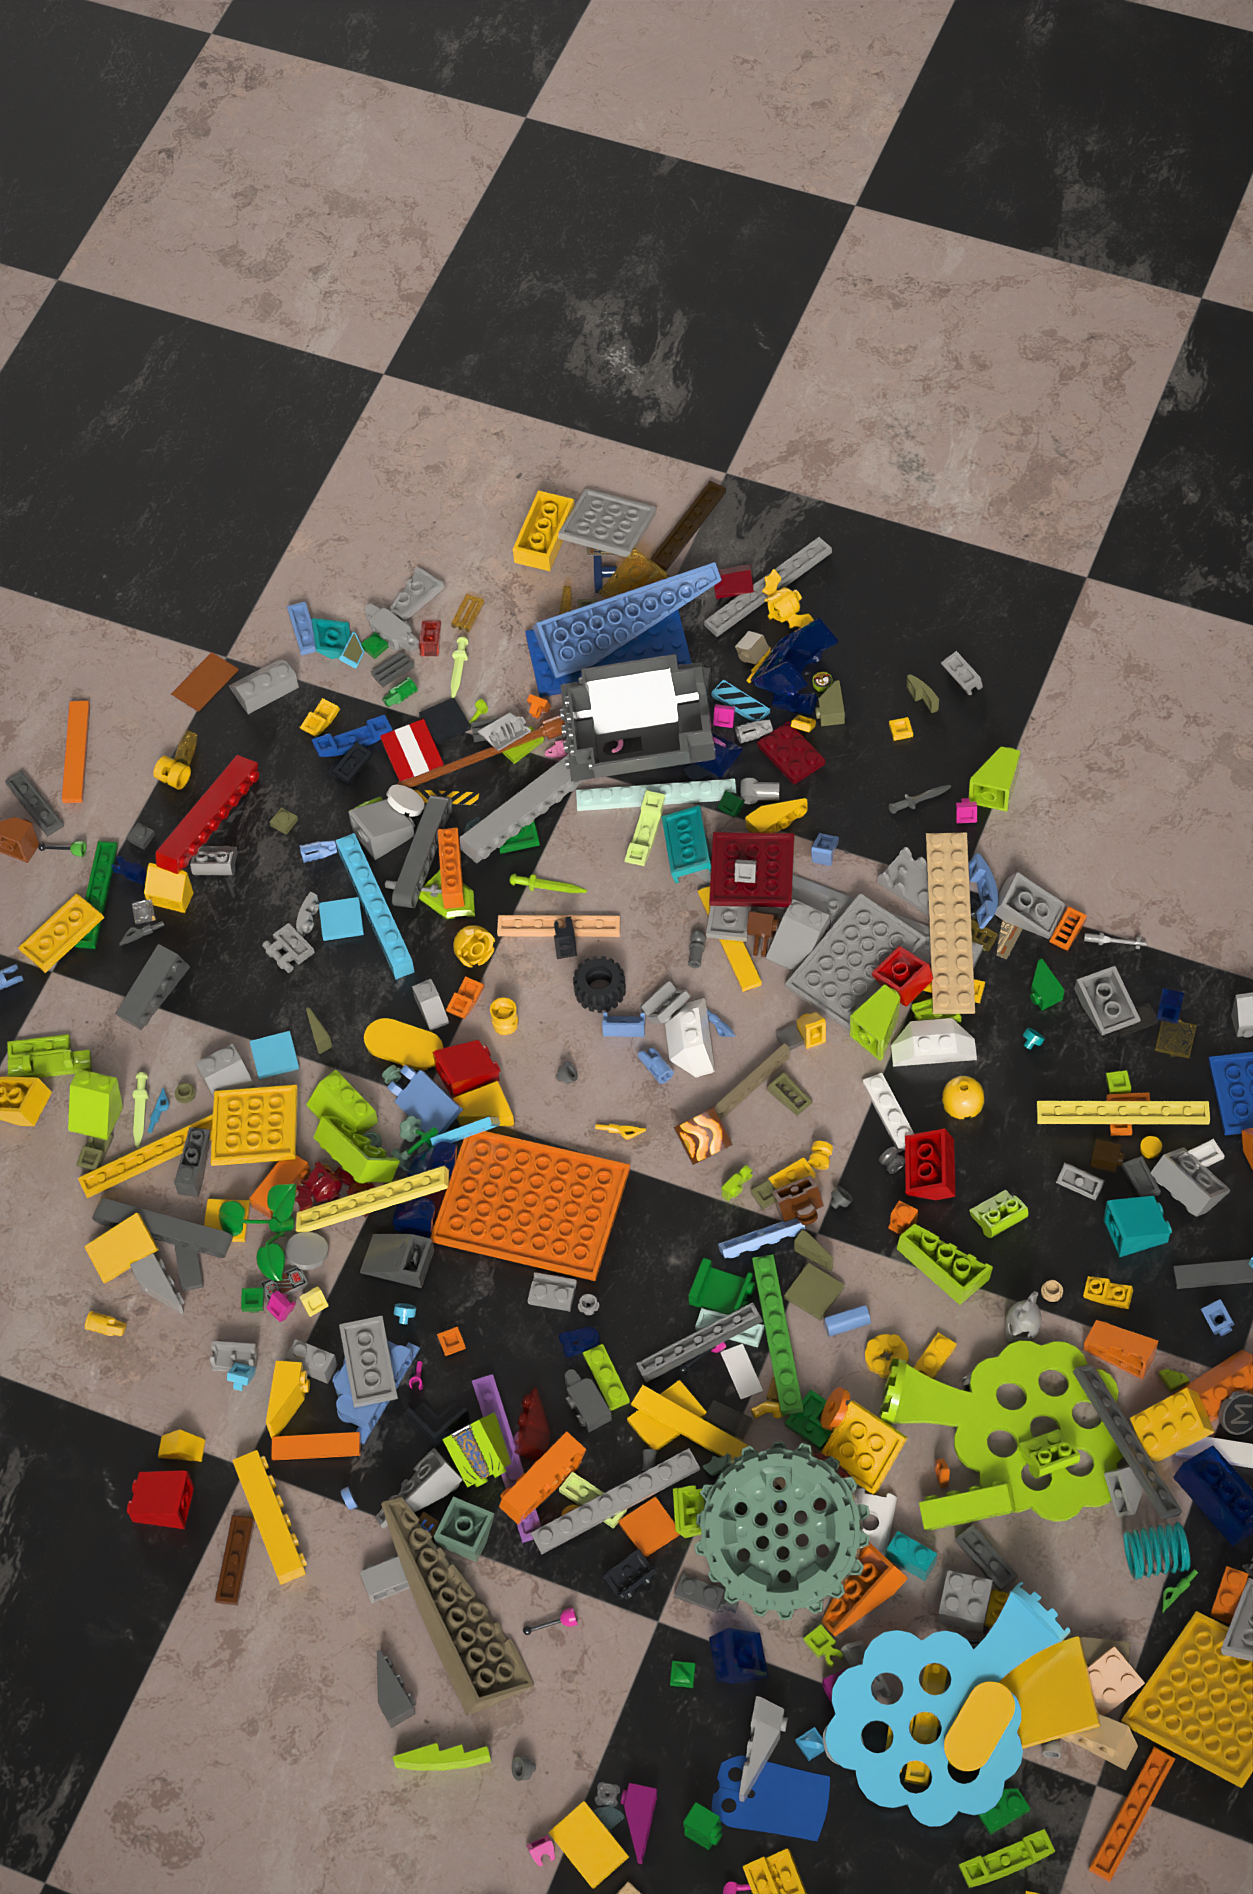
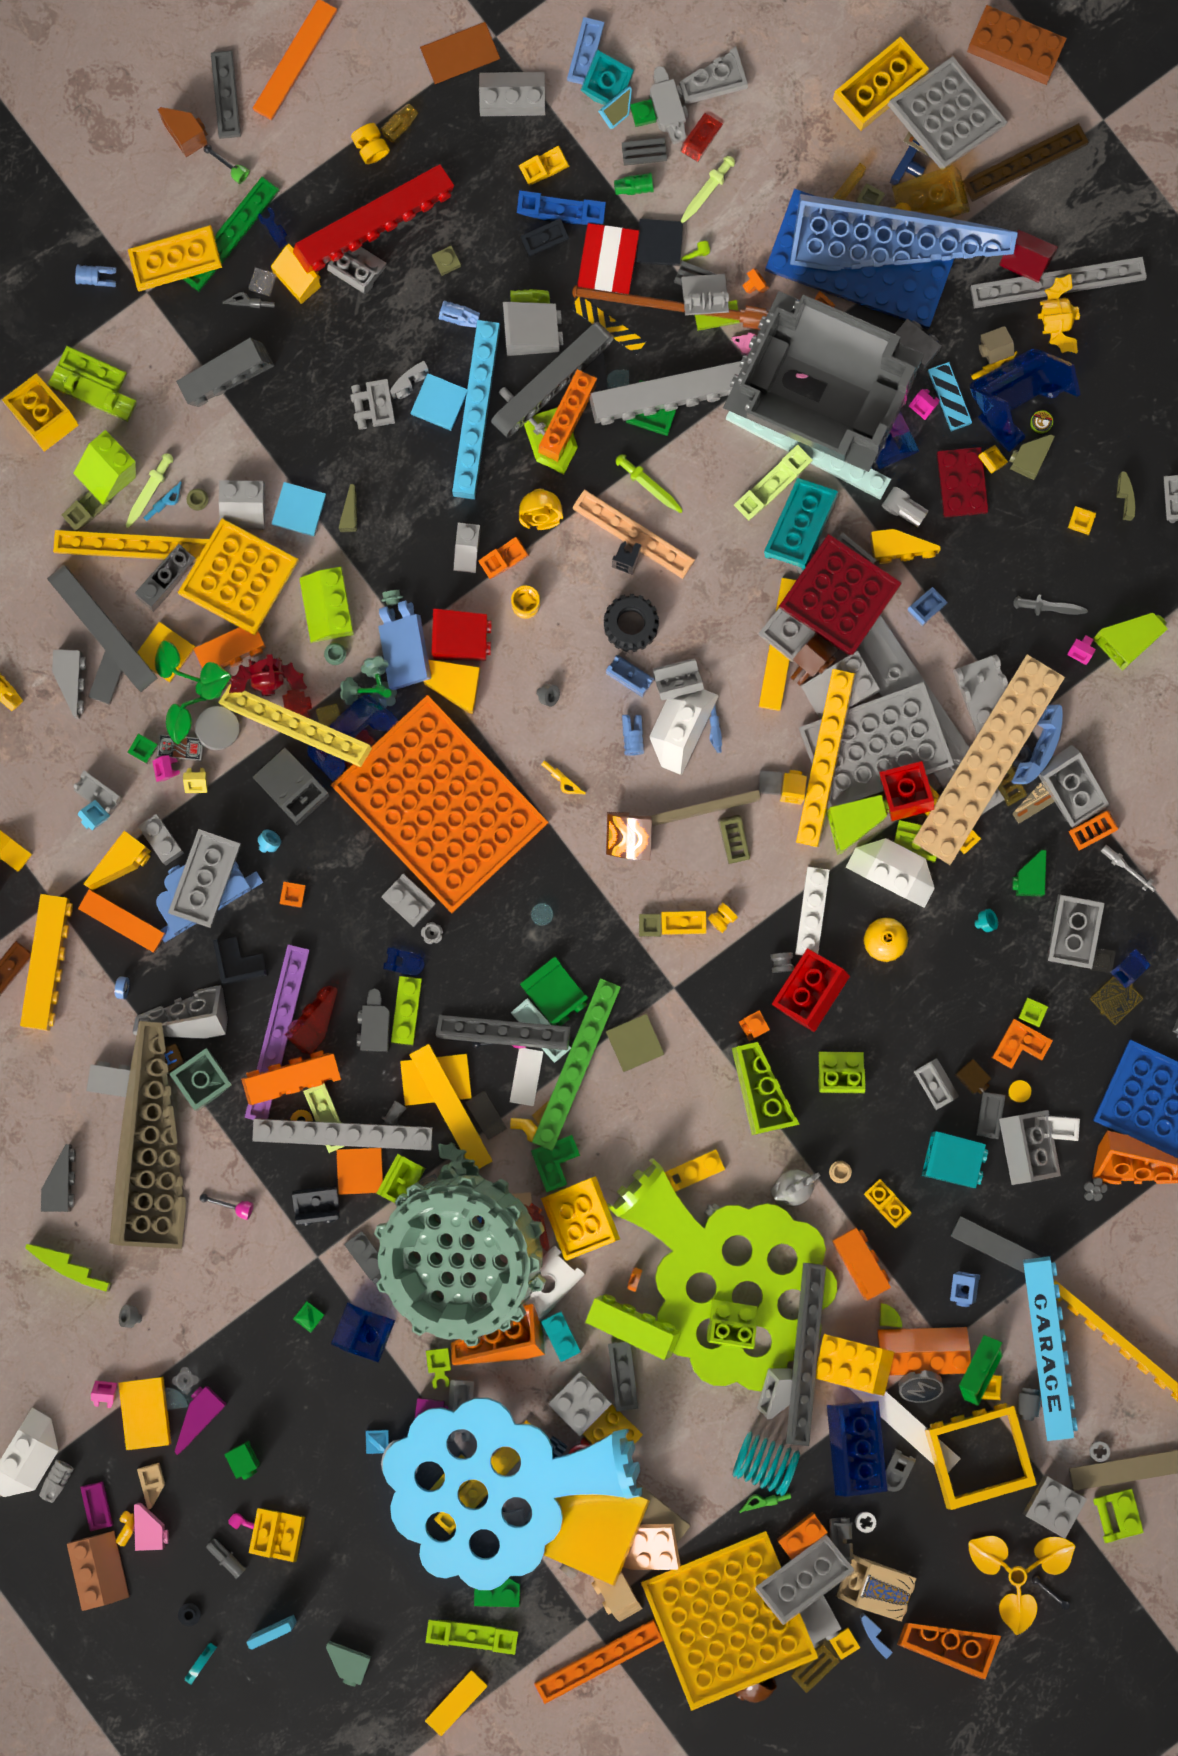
camera: 25 degrees right, 25 degrees up
(121, 1247) = (55, 627): yellow tile -> none
(141, 835) = (305, 194): dark grey plate -> none
(355, 1151) = (310, 660): lime wedge -> none
(402, 1043) = (420, 571): yellow tile -> none
(405, 800) = (568, 313): white tile -> none
(417, 1377) = (245, 908): dark pink hand -> none
(462, 625) = (739, 142): clear yellow tile -> none
(467, 1130) = (418, 706): medium azure tile -> none
(479, 1450) = (254, 1015): lime slope -> none
(628, 457) = (1016, 44): none -> dark orange brick
(671, 1238) = (542, 914): none -> clear light blue tile
(696, 949) = (750, 629): dark grey pin -> none
(731, 803) = (870, 505): dark green plate -> none
(734, 1185) = (626, 901): lime plate -> none
(745, 871) = (829, 598): light grey tile -> none
(753, 1240) = (620, 964): light blue plate -> none
(757, 729) = (941, 437): light grey hinge -> none
(766, 1730) = (342, 1412): light grey wedge -> none
(783, 1804) = (327, 1474): blue piece -> none
(799, 1201) = (672, 953): reddish brown brick -> none
(811, 1249) = (655, 999): olive slope -> none
(822, 990) = (825, 757): none -> yellow plate
(835, 1409) = (576, 1170): orange tile -> none
(840, 1197) = (714, 969): dark grey tile -> none
(847, 1320) = (644, 1090): medium blue brick -> none
(877, 1347) = (670, 1137): yellow plate -> none
(979, 1726) = (516, 1523): yellow tile -> none
(1123, 1112) = (1014, 1048): light yellow plate -> none

